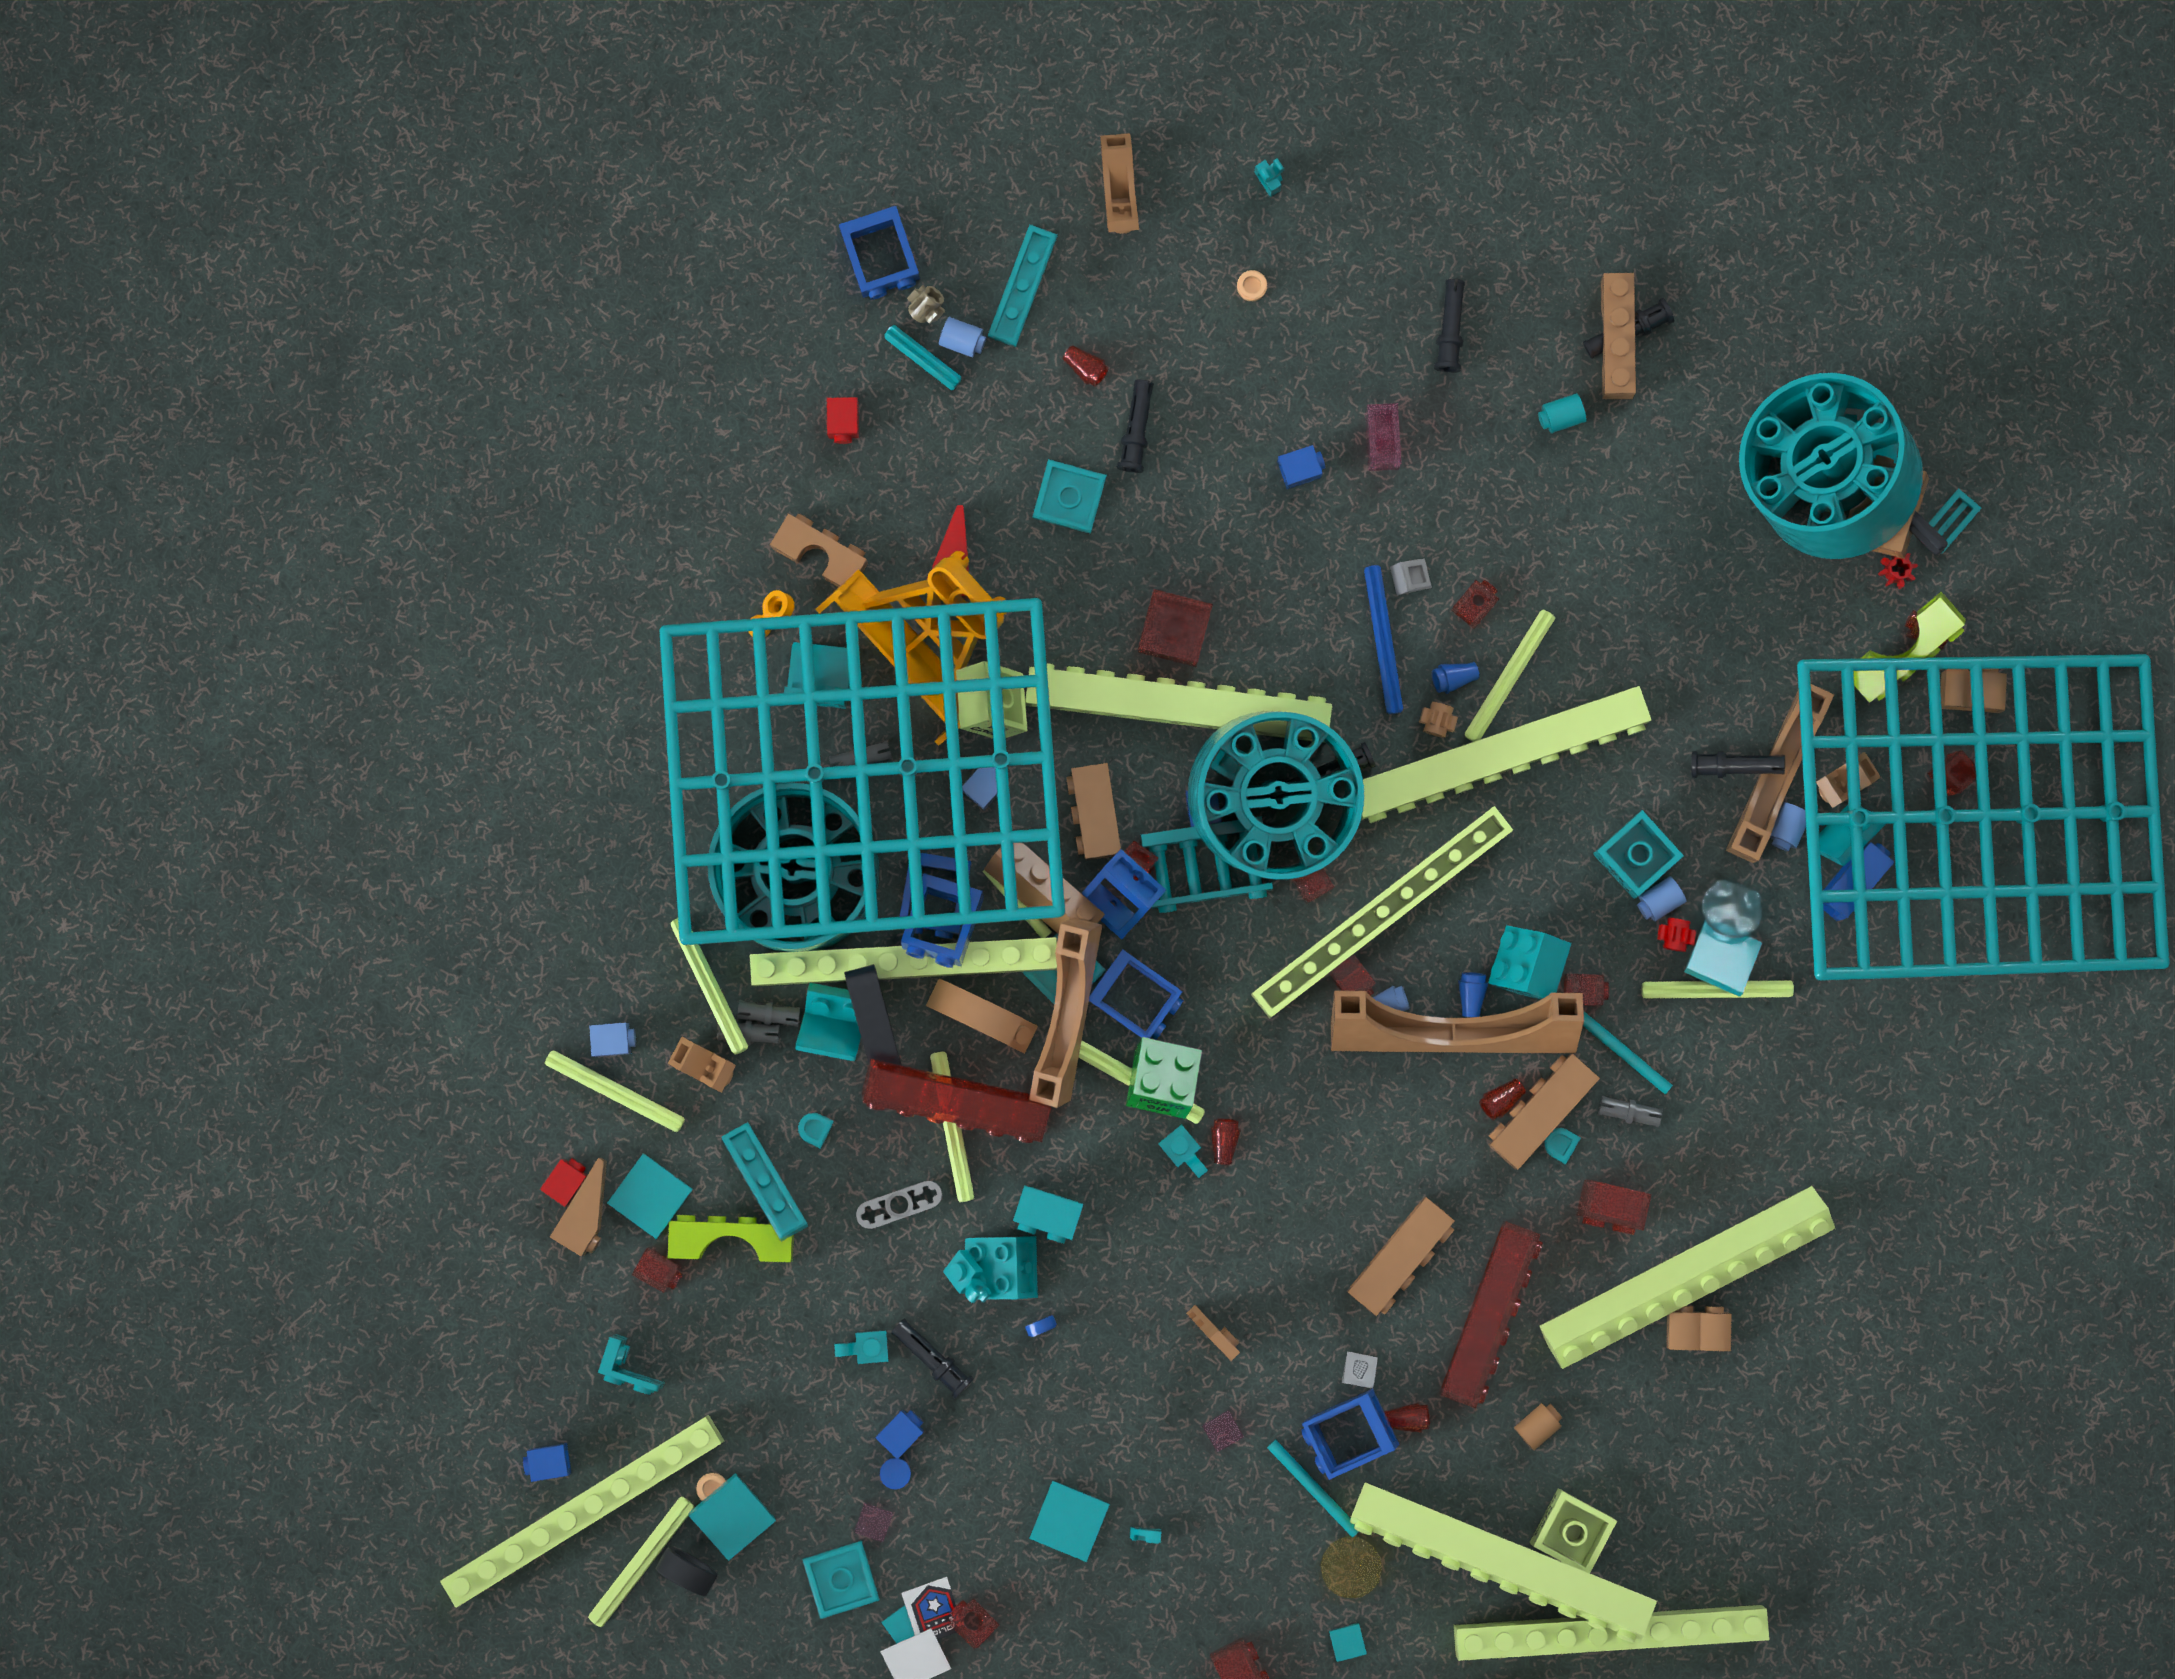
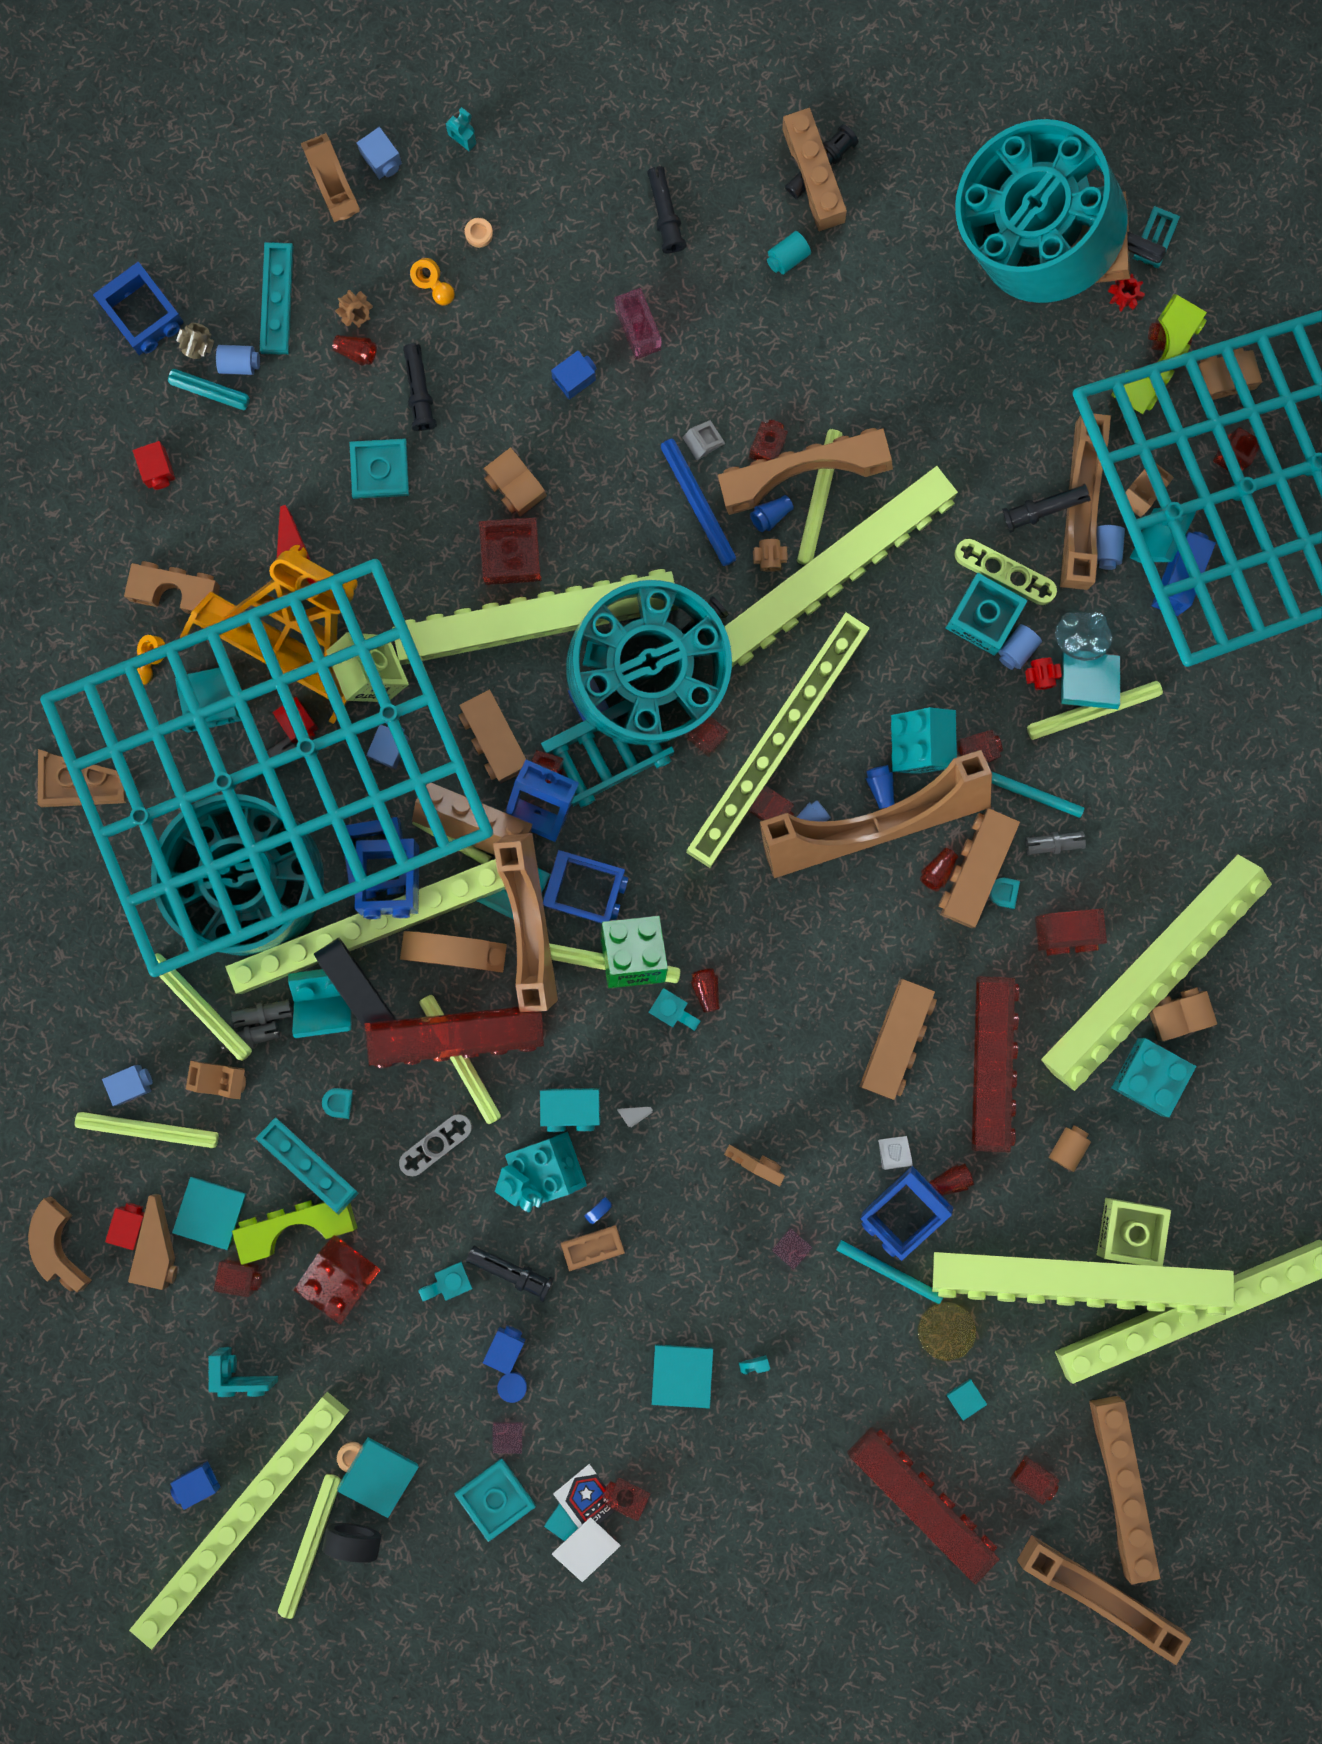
camera: 25 degrees left, 0 degrees up
(477, 1175) = (46, 1246): none -> medium nougat arch
(644, 716) = (57, 787): none -> medium nougat wing
(758, 1305) = (337, 1279): none -> clear red brick
(891, 727) = (284, 721): none -> red brick
(1022, 1361) = (592, 1247): none -> medium nougat plate
(1098, 324) = (347, 305): none -> medium nougat gear
(1109, 1242) = (634, 1115): none -> light grey slope
(1177, 172) = (379, 153): none -> medium blue brick
(1193, 336) = (442, 292): none -> light orange plate
(1203, 558) = (515, 482): none -> medium nougat brick
(1439, 641) = (860, 454): none -> medium nougat arch
(1647, 1382) = (1153, 1077): none -> teal brick
(1676, 814) = (1007, 567): none -> yellowish green beam

